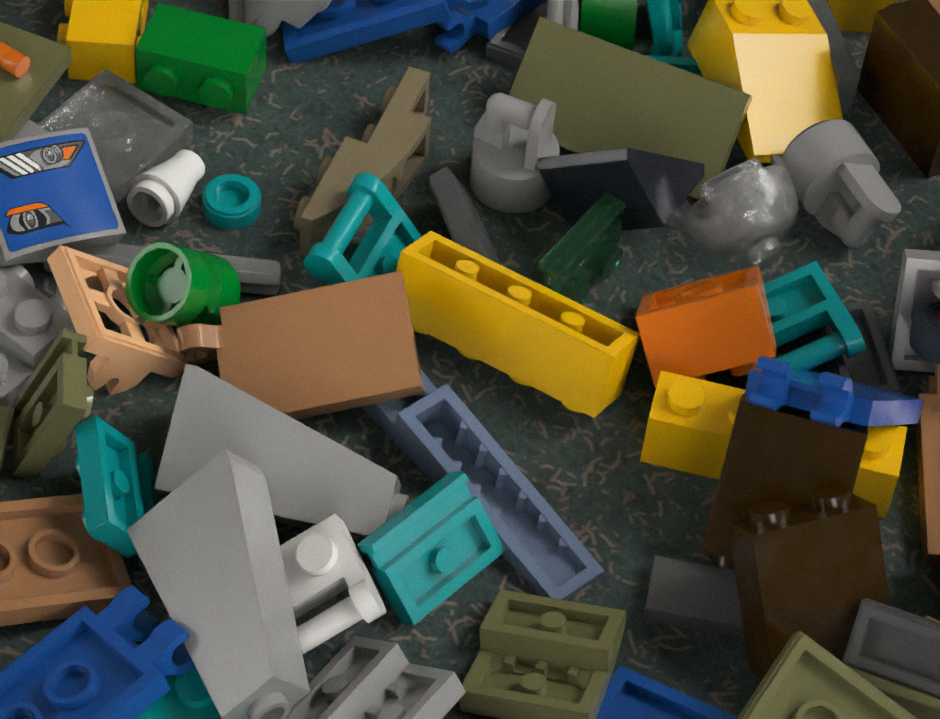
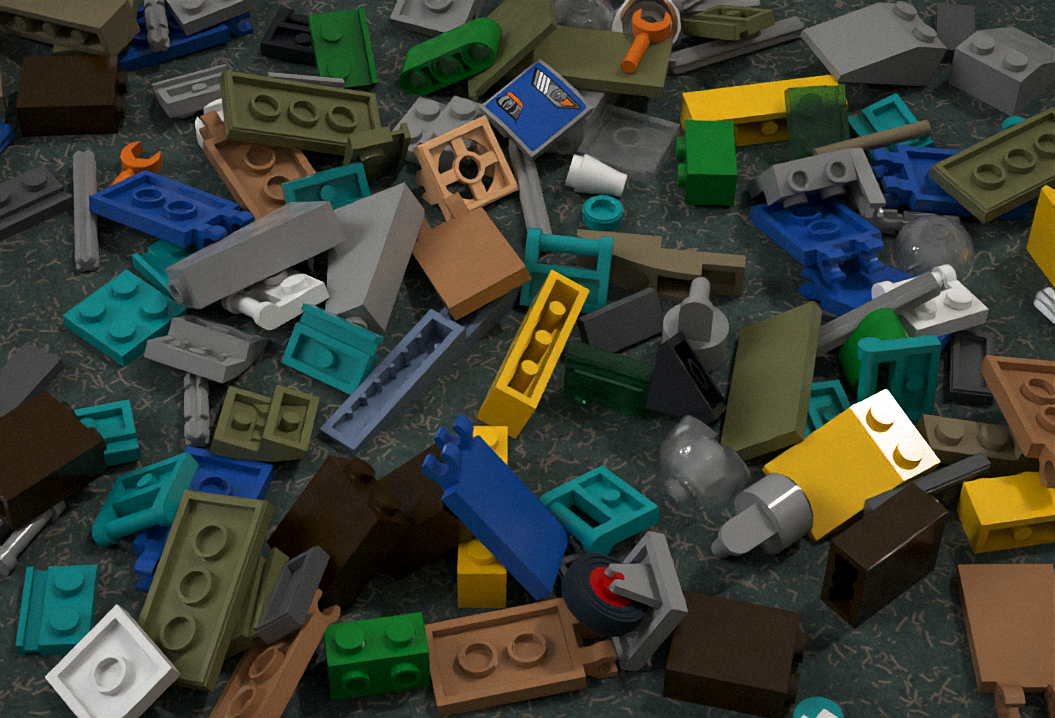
camera: 80 degrees right, 5 degrees down
(180, 285) = (491, 186): green wheel -> none
(707, 326) = (568, 452): orange slope -> none

